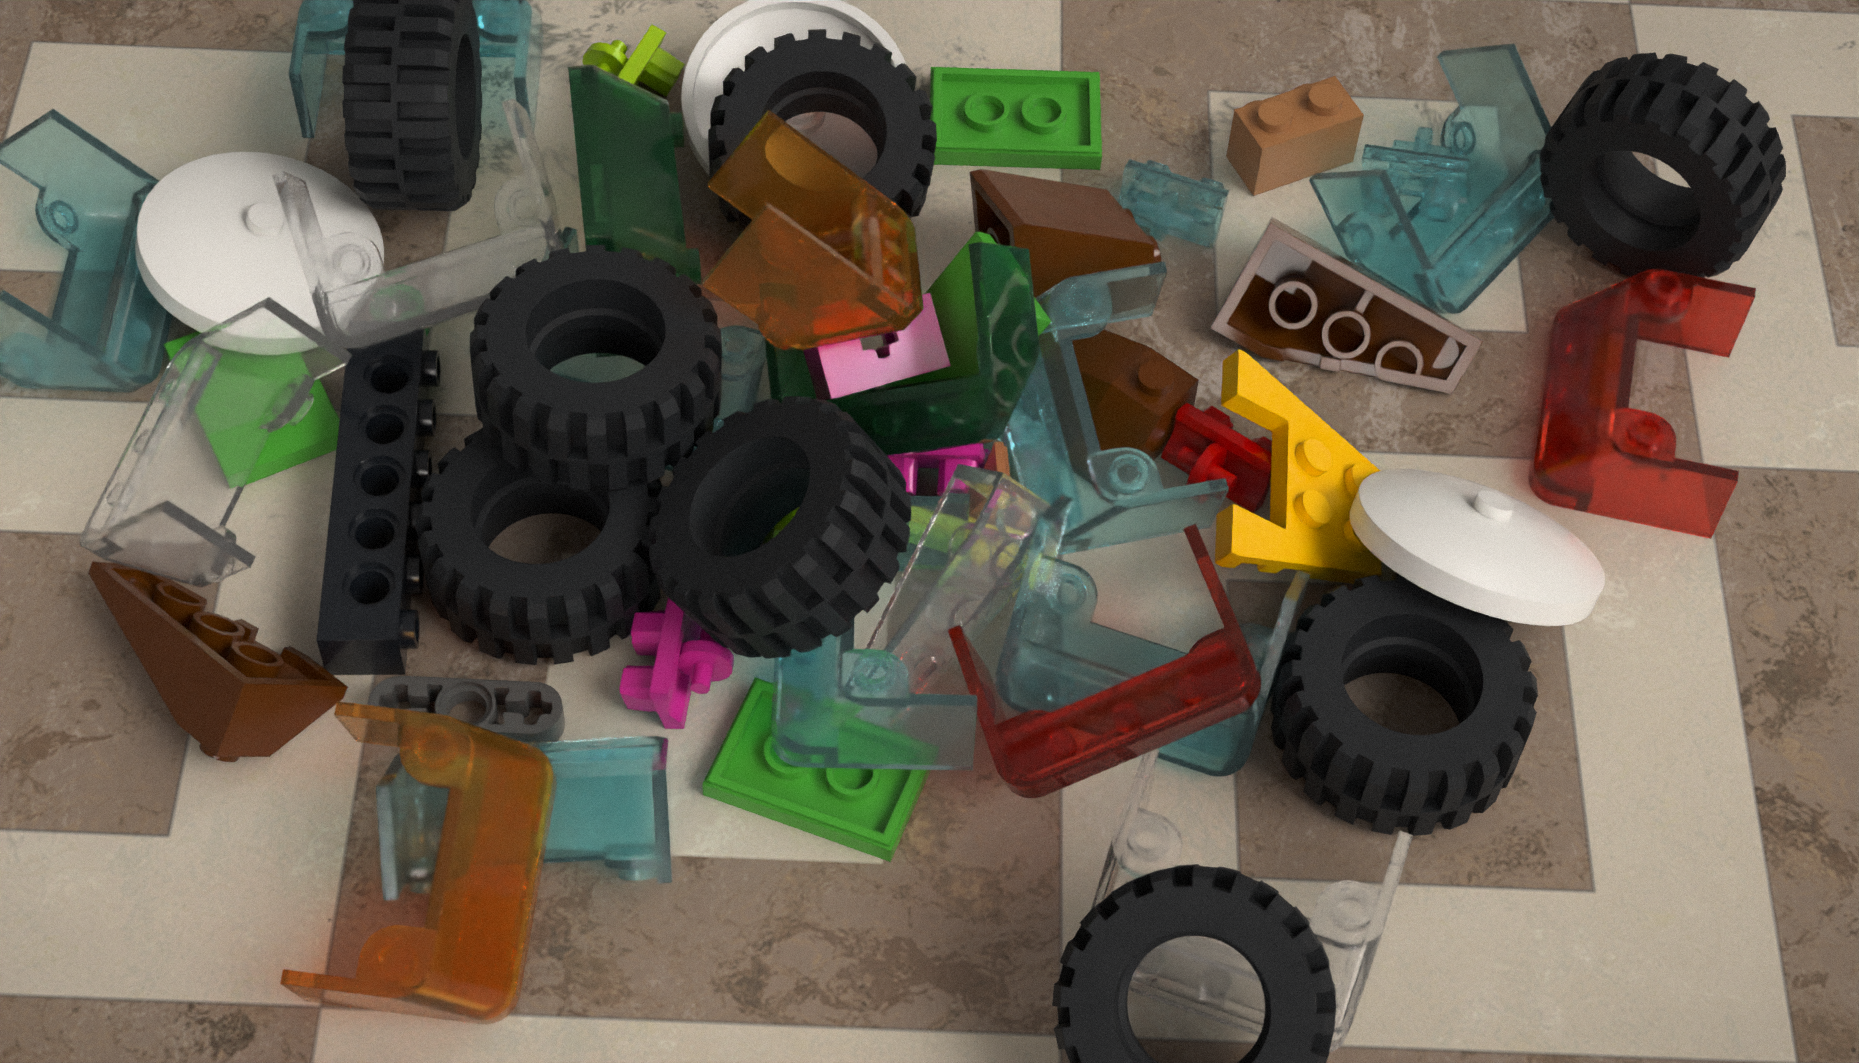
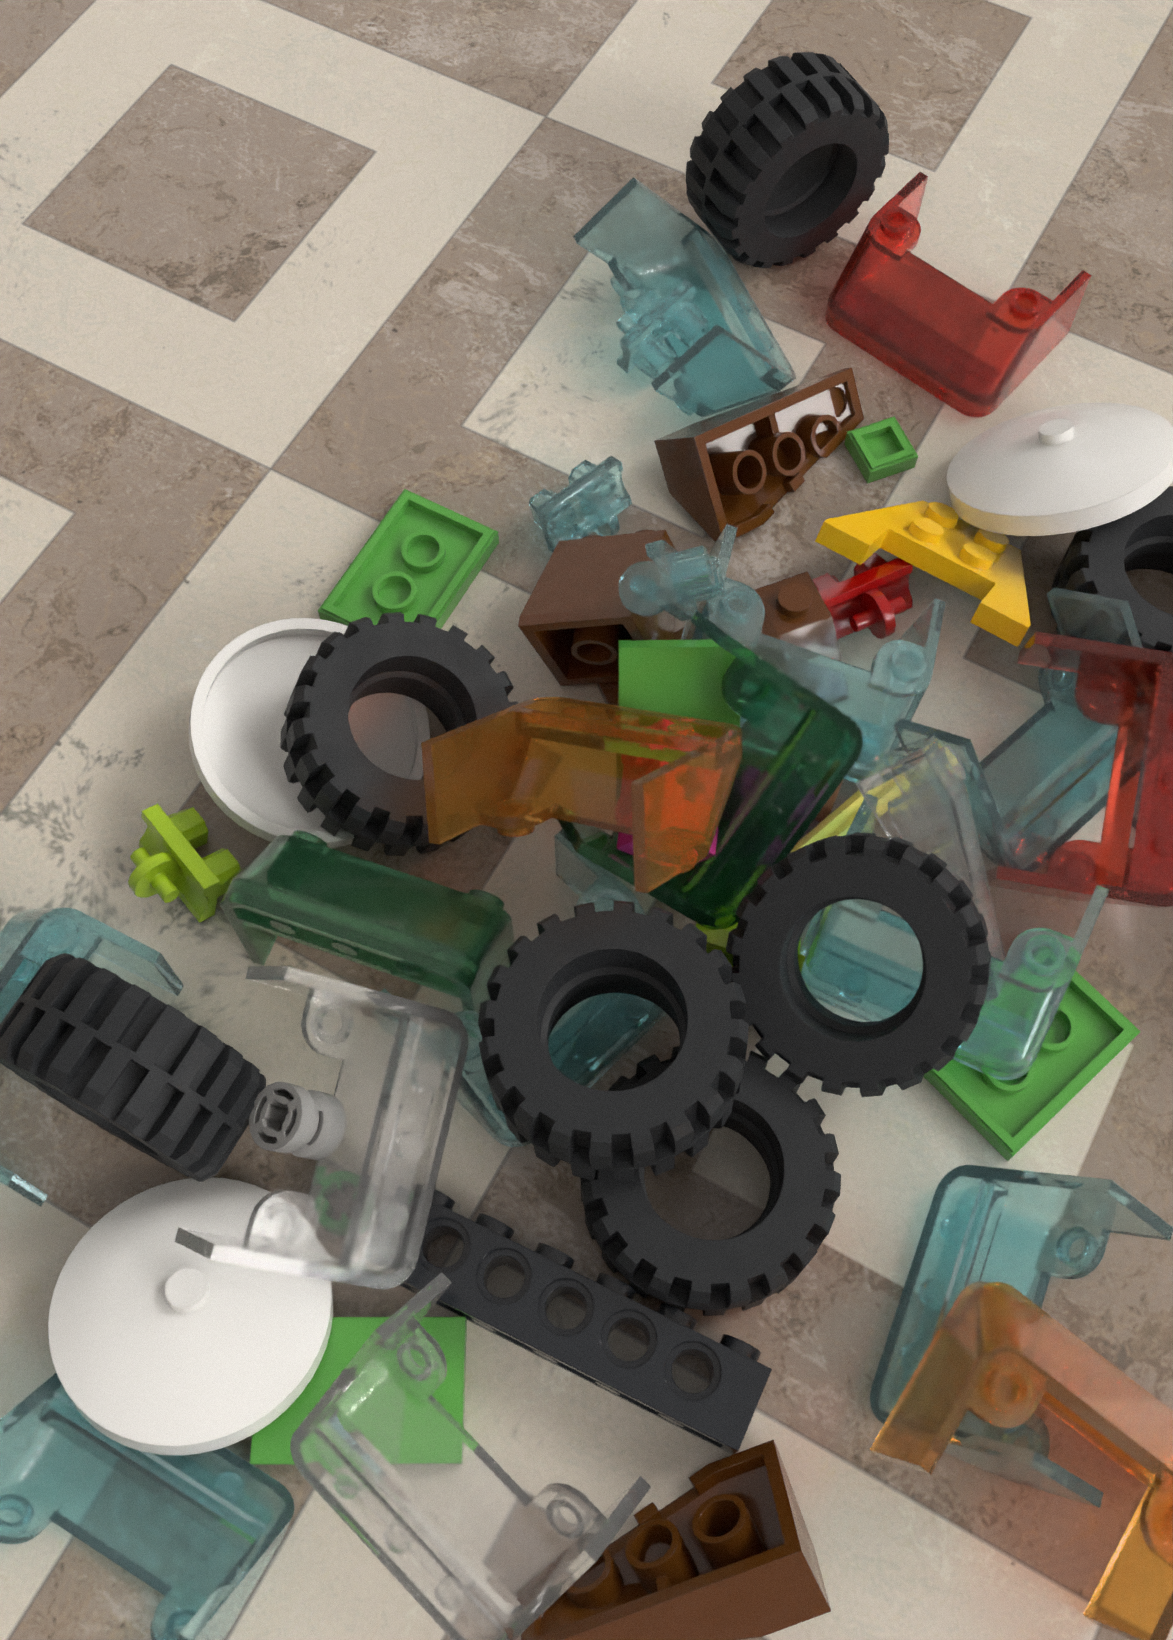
camera: 60 degrees left, 10 degrees up
(431, 220) = (297, 1121): none -> light grey wheel
(448, 692) = (883, 1298): dark grey beam -> none
(683, 663) = (904, 1143): dark pink hips -> none
(1057, 230) = (672, 582): none -> clear light blue hips
(1294, 135) = (565, 385): medium nougat brick -> none
(1422, 419) = (881, 449): none -> bright green tile

